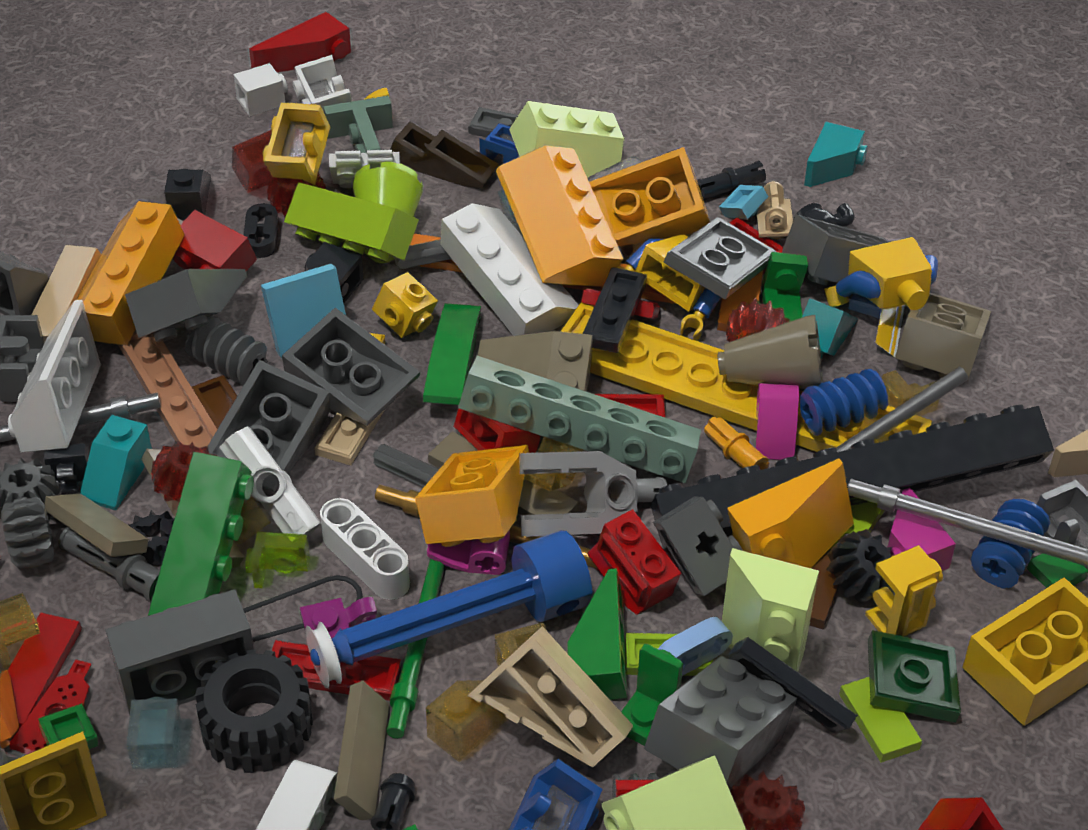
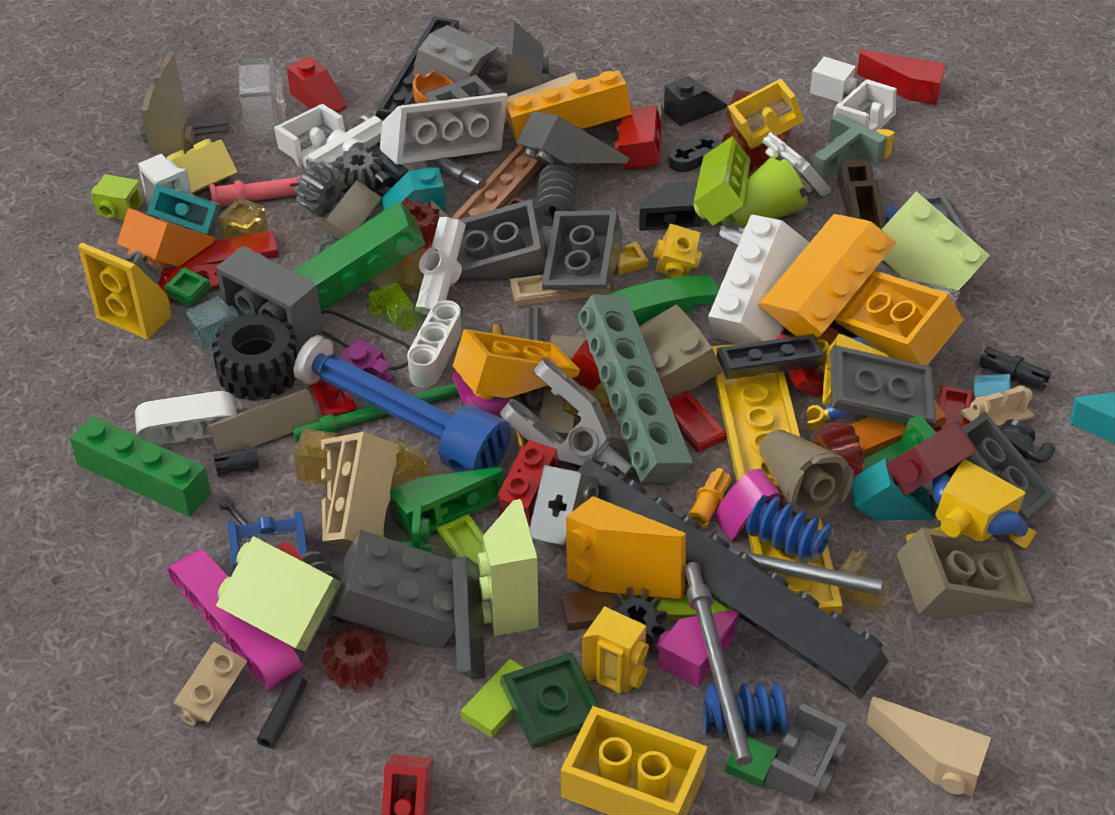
camera: 60 degrees right, 0 degrees up
(300, 303) = (625, 194): medium azure tile -> none
(699, 643) = (458, 542): light blue beam -> none
(833, 270) = (931, 457): none -> dark red slope

